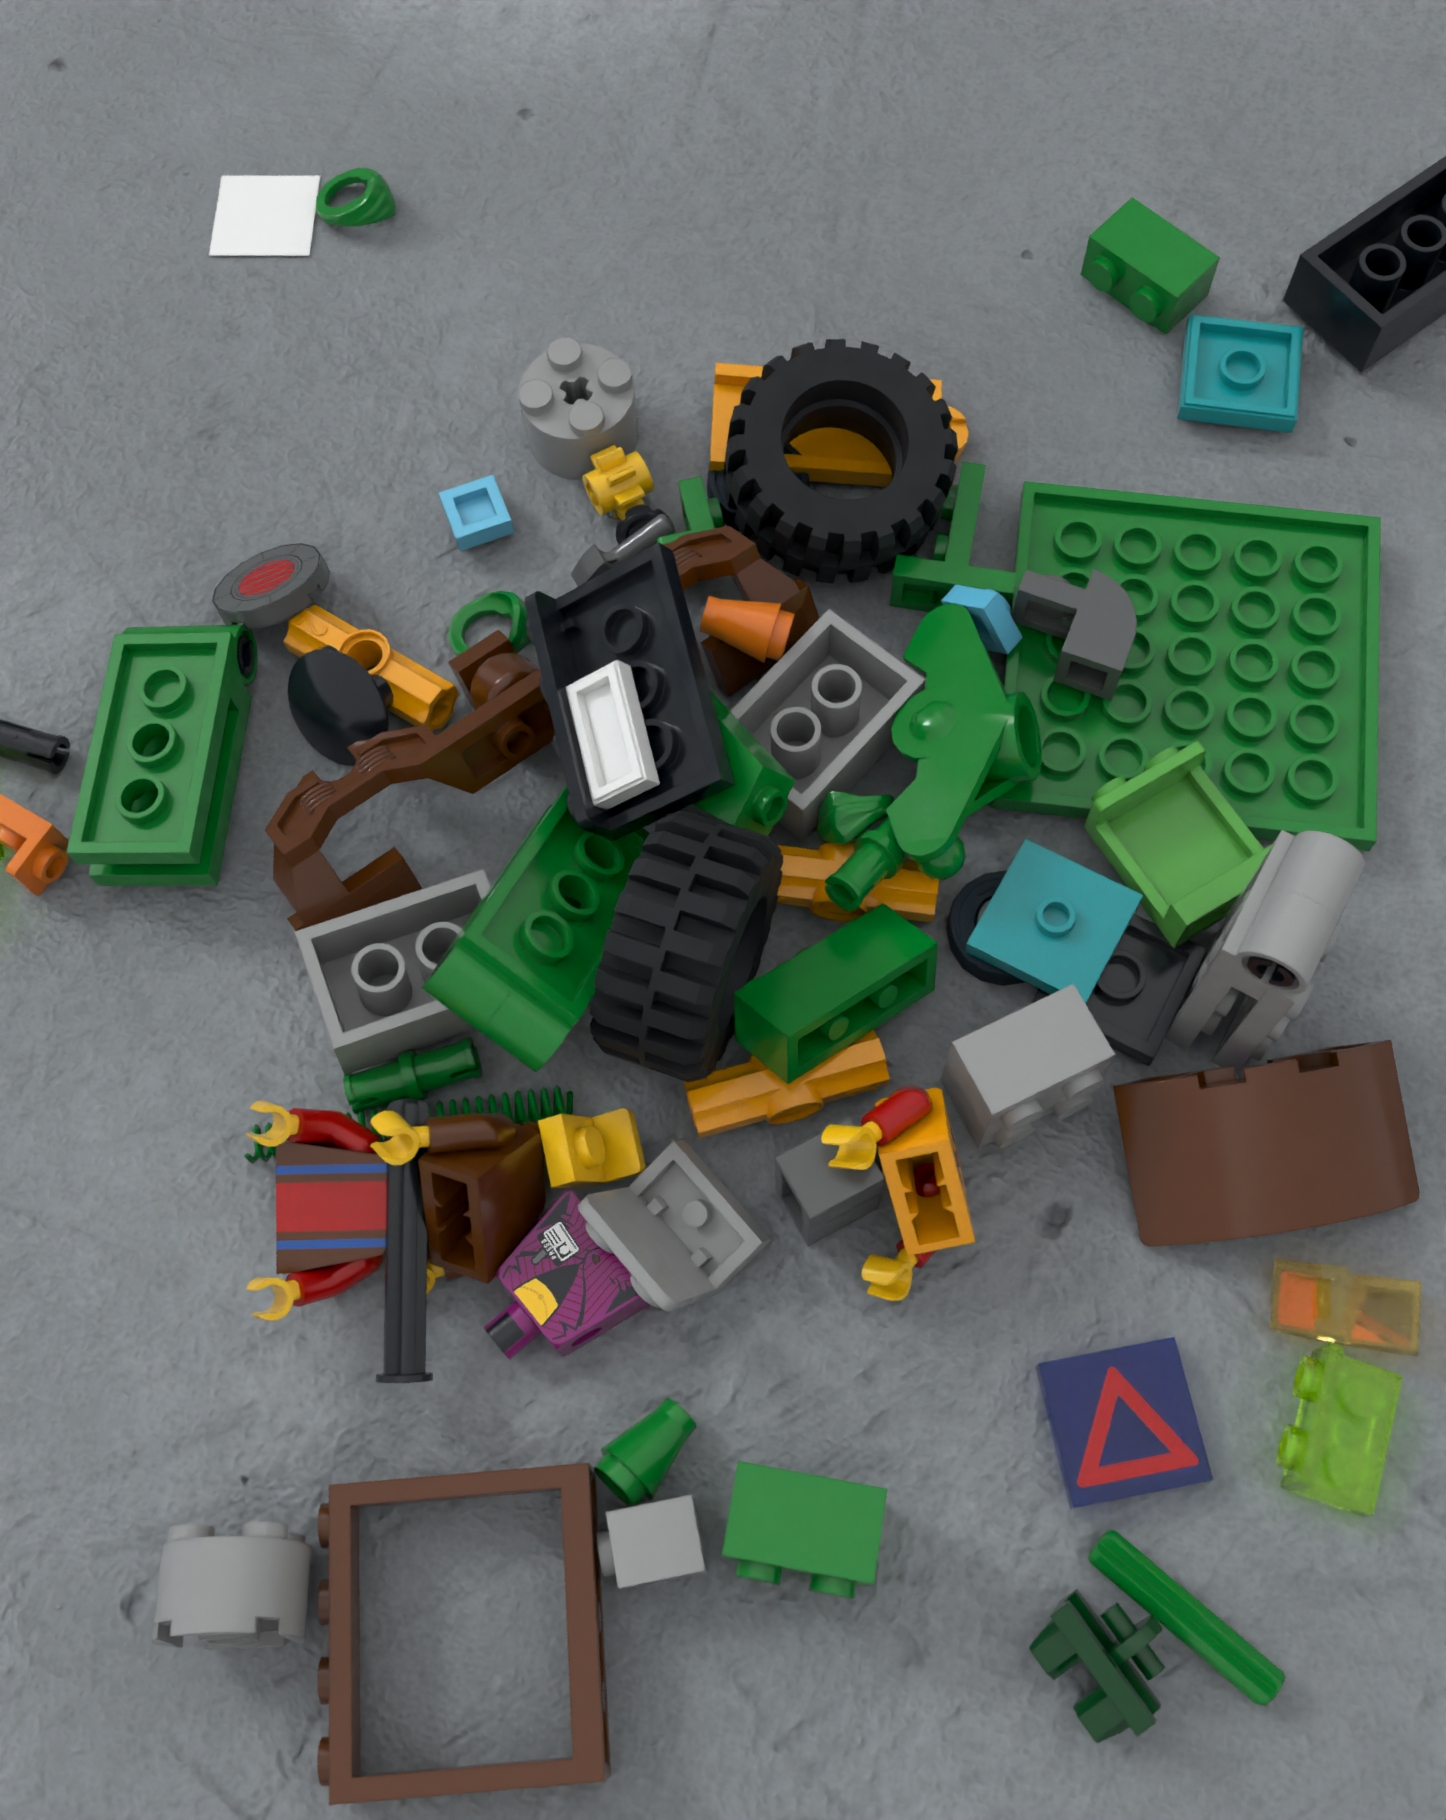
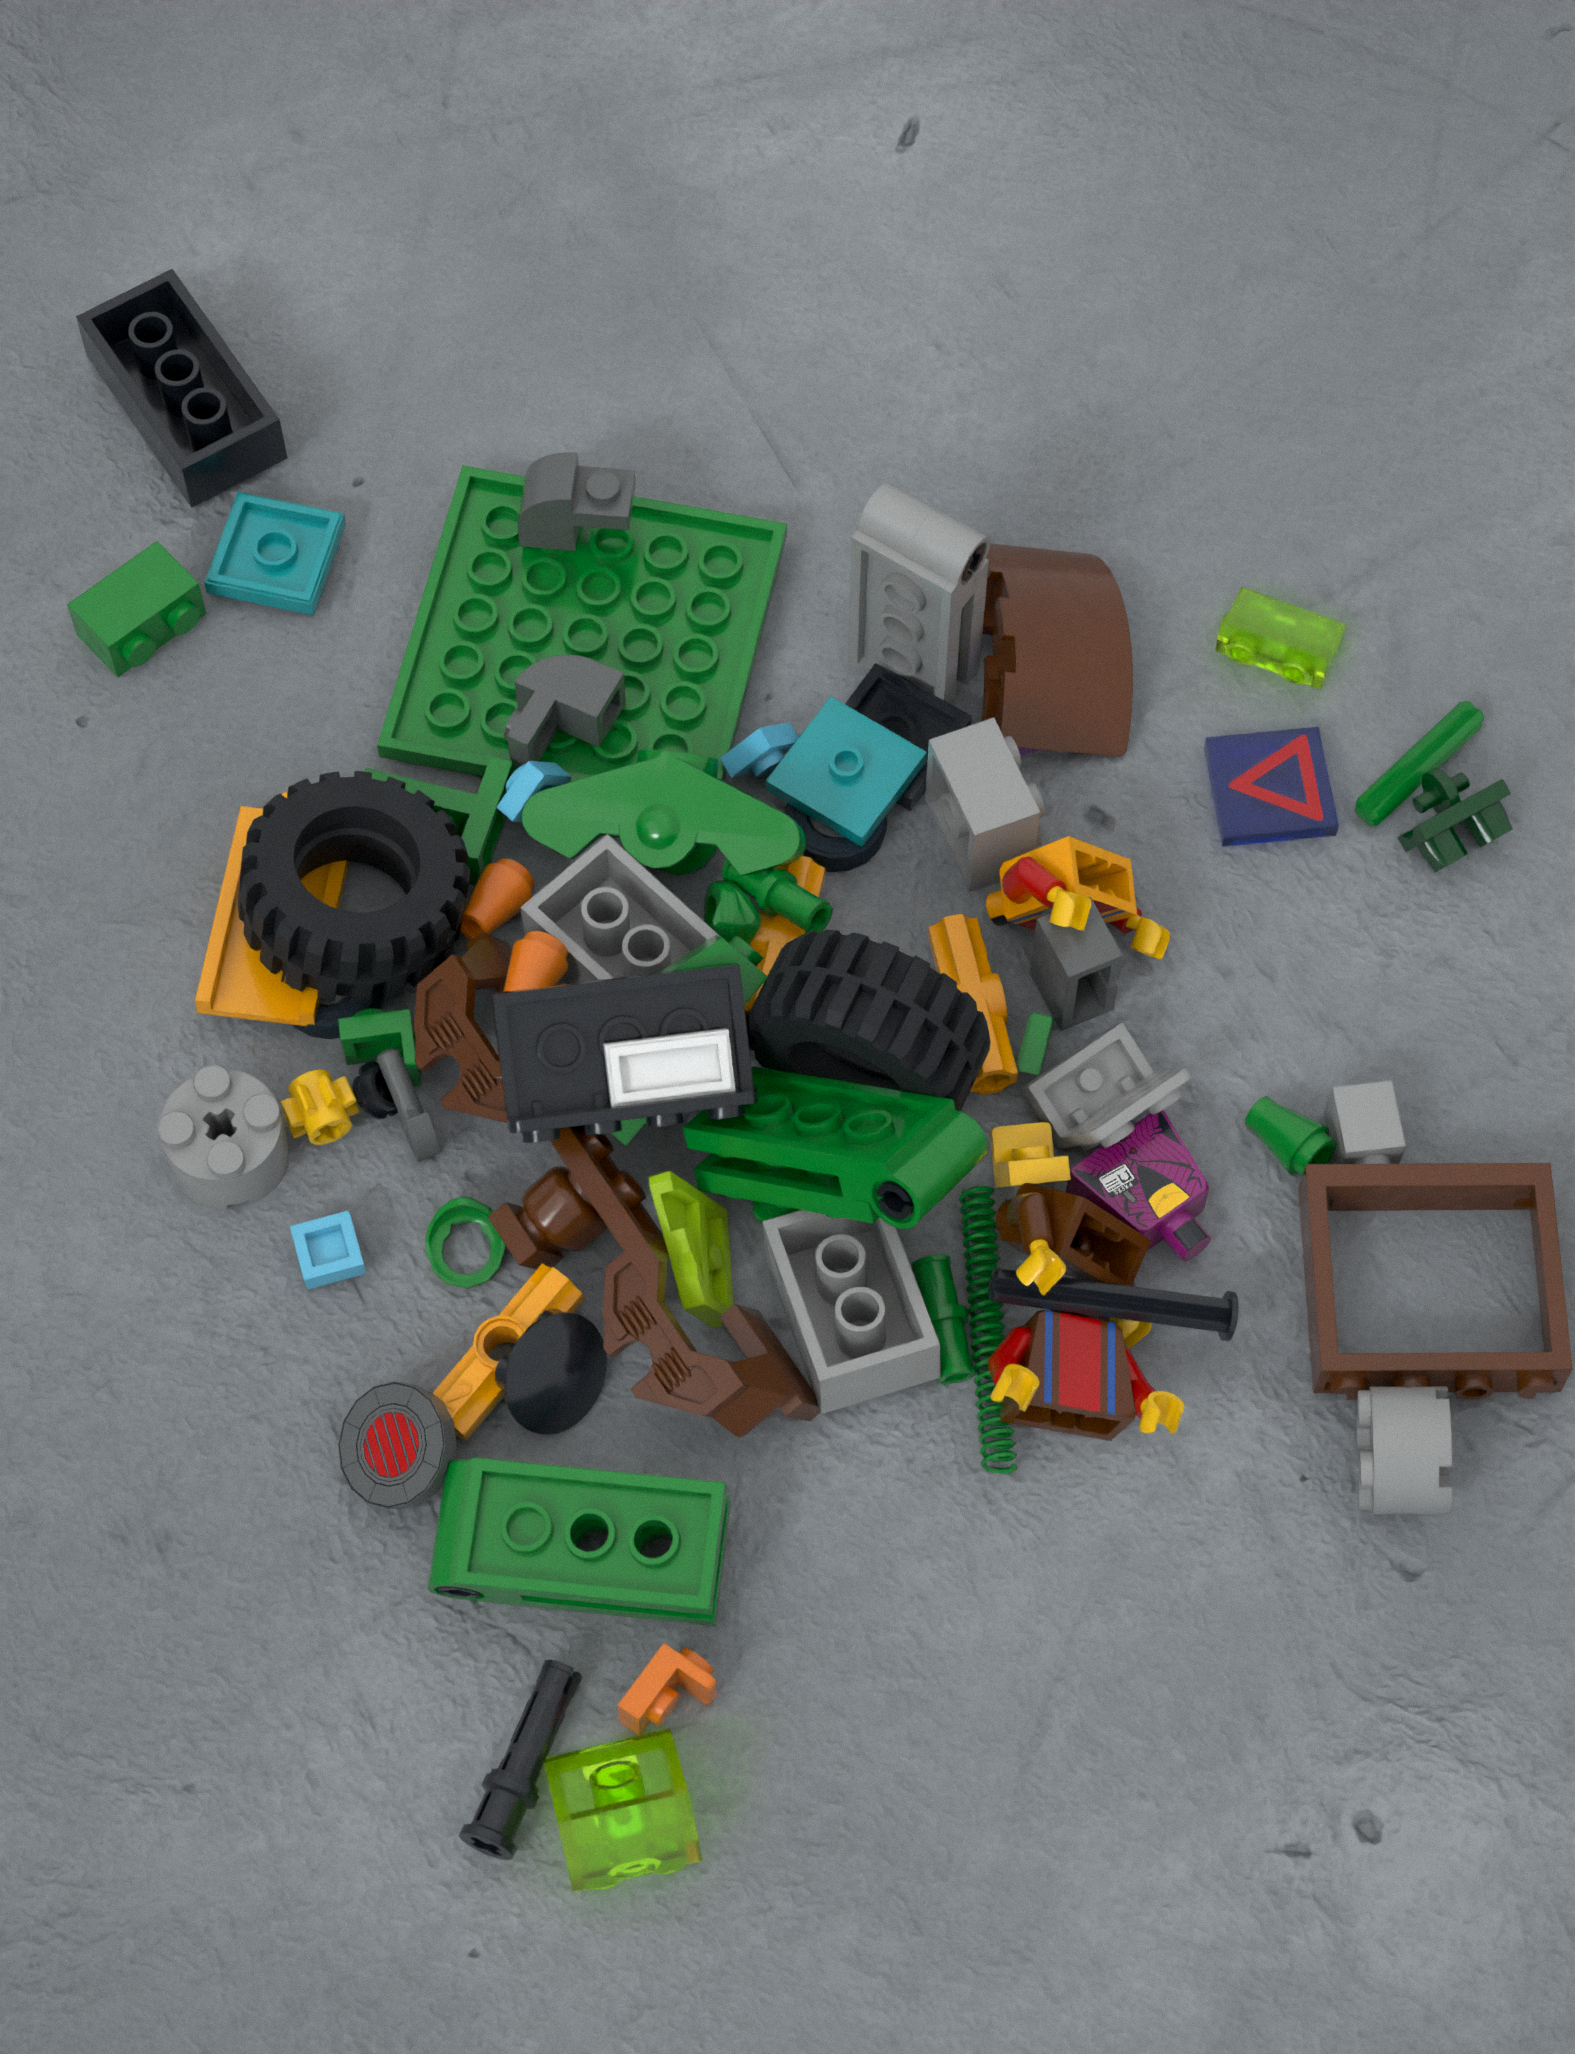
camera: 90 degrees left, 5 degrees down
(471, 821) = (697, 1246): none -> lime wing
(741, 1153) = (1035, 1043): none -> green tile
(804, 1528) = (1362, 1004): green brick -> none
(834, 992) = (876, 906): green brick -> none
(860, 603) = (497, 897): none -> orange cone
(1068, 834) = (760, 751): none -> medium azure plate
(1175, 842) = (787, 659): bright green panel -> none
(1339, 606) = (564, 496): none -> dark grey brick
(1346, 1308) = (1184, 616): clear yellow slope -> none

